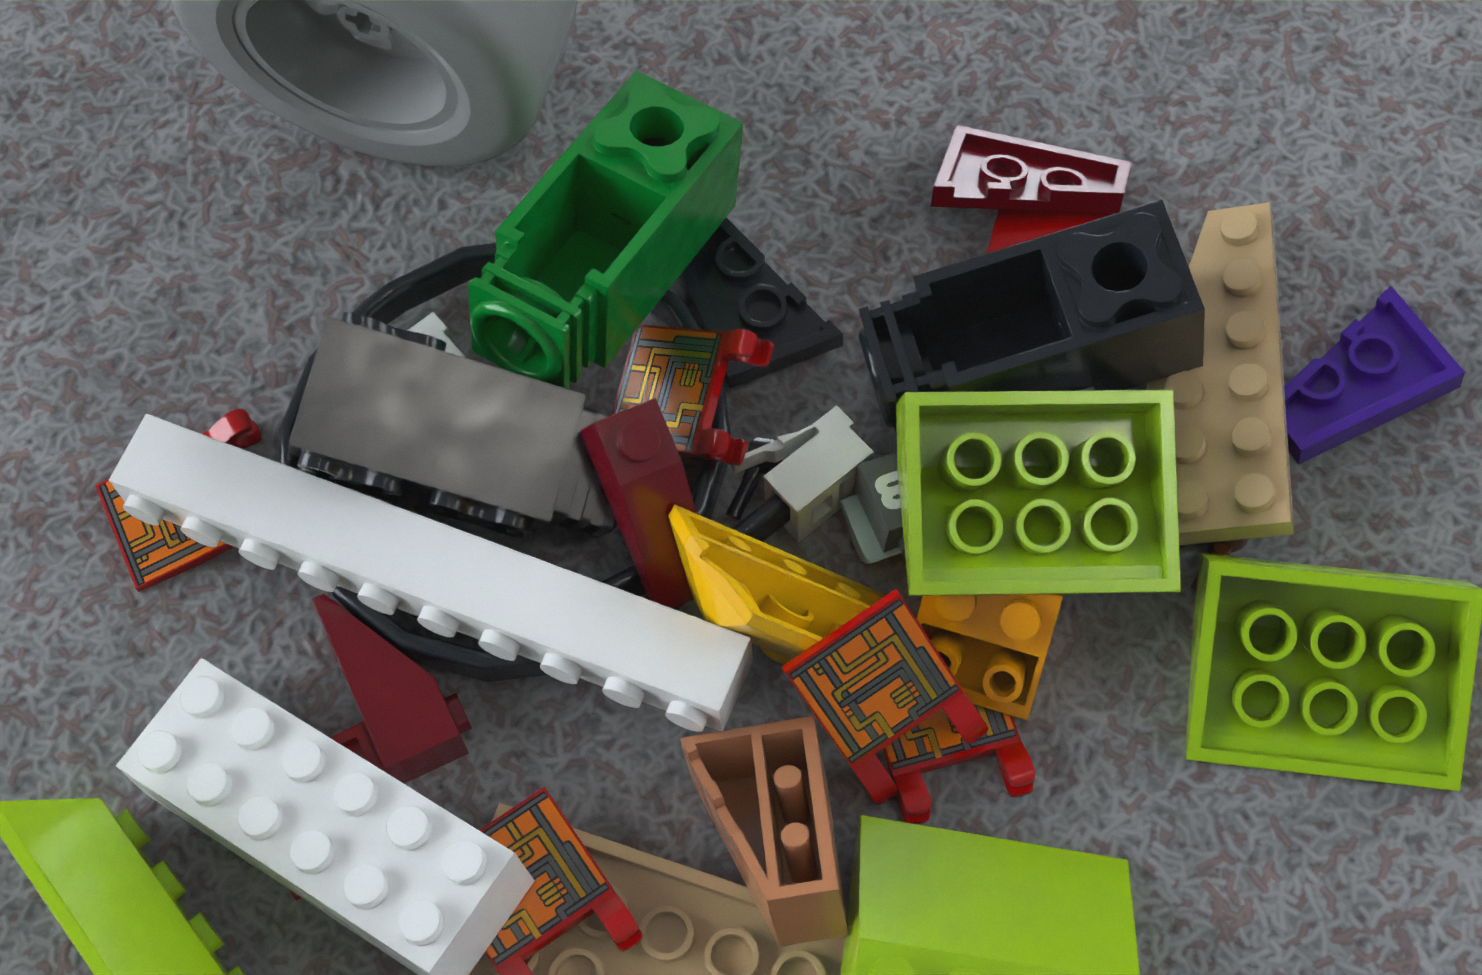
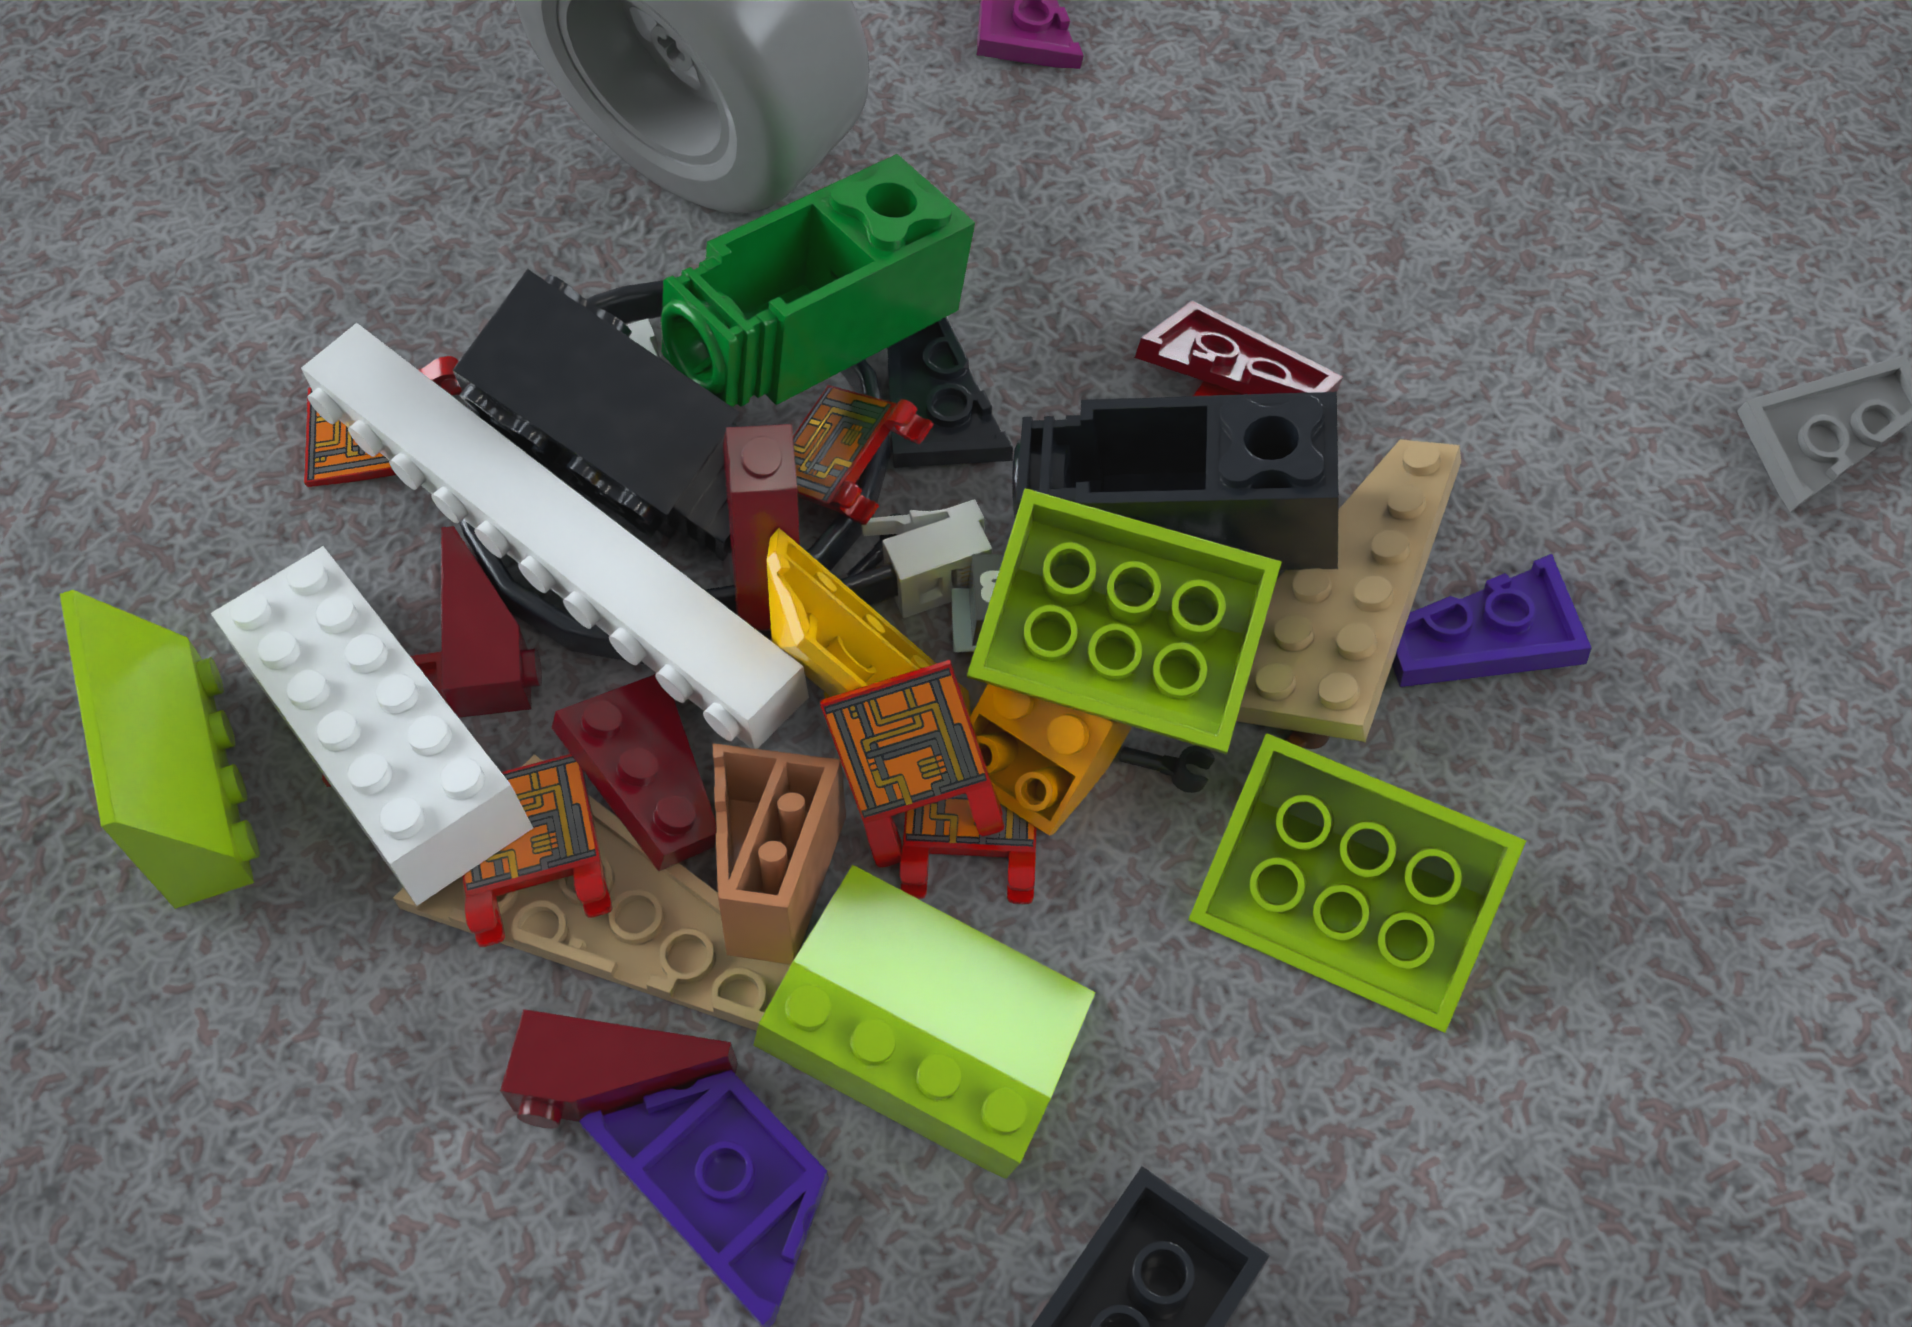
camera: 15 degrees right, 5 degrees down
(613, 781) = (642, 767): none -> dark red wing
(1113, 611) = (1174, 766): none -> black hand

